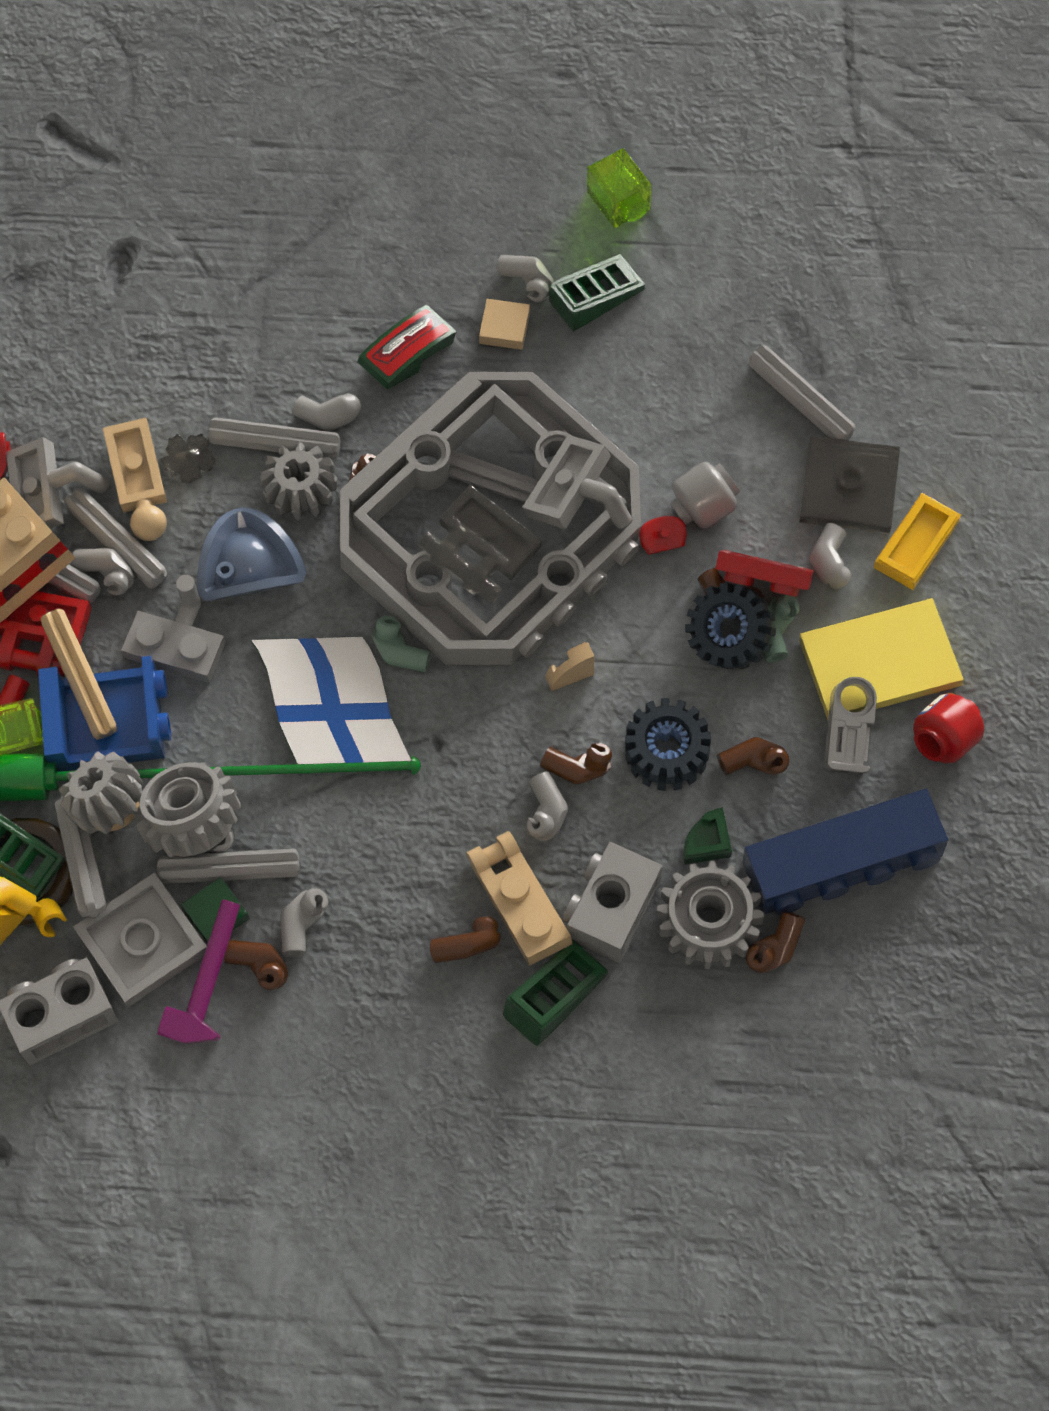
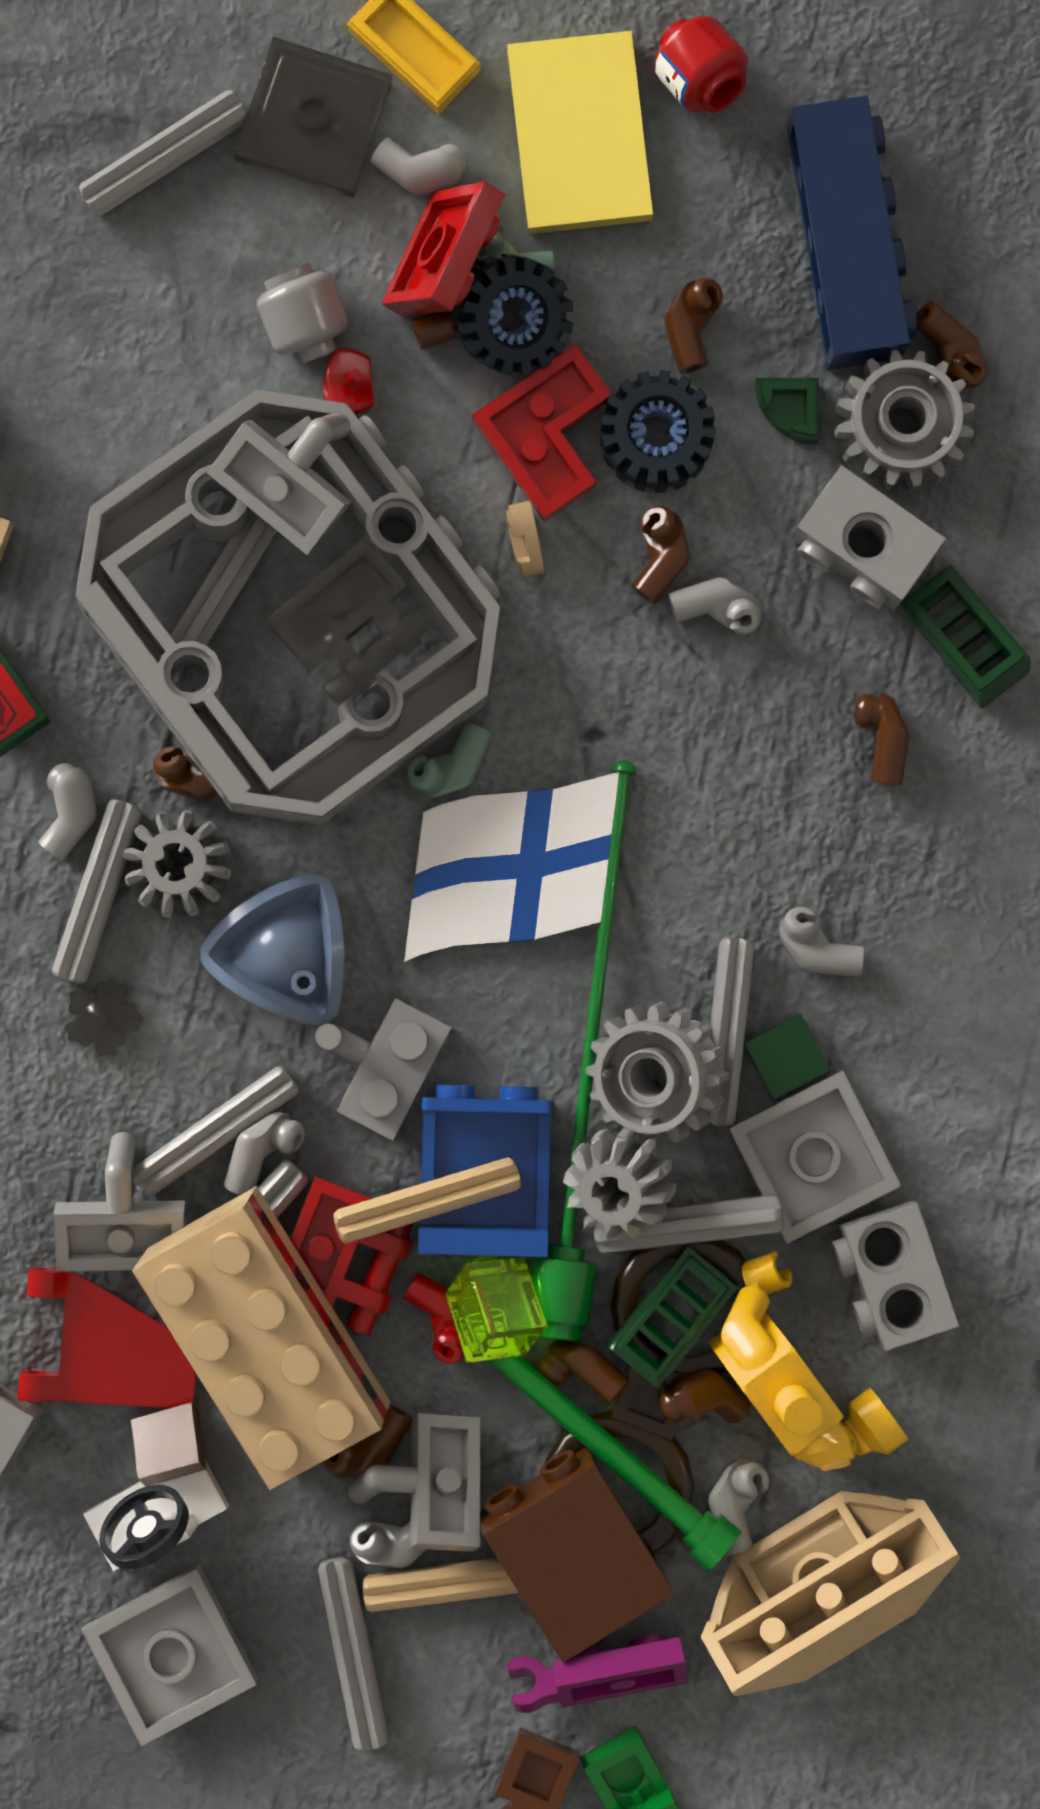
camera: 85 degrees left, 20 degrees up
(137, 477) = (126, 1089): tan plate -> none
(190, 1025) = (936, 1107): magenta piece -> none
(262, 959) = (864, 1002): reddish brown arm -> none
(519, 899) = (839, 660): tan plate -> none
(654, 657) = (529, 425): none -> red plate
(848, 731) = (682, 194): light grey piece -> none

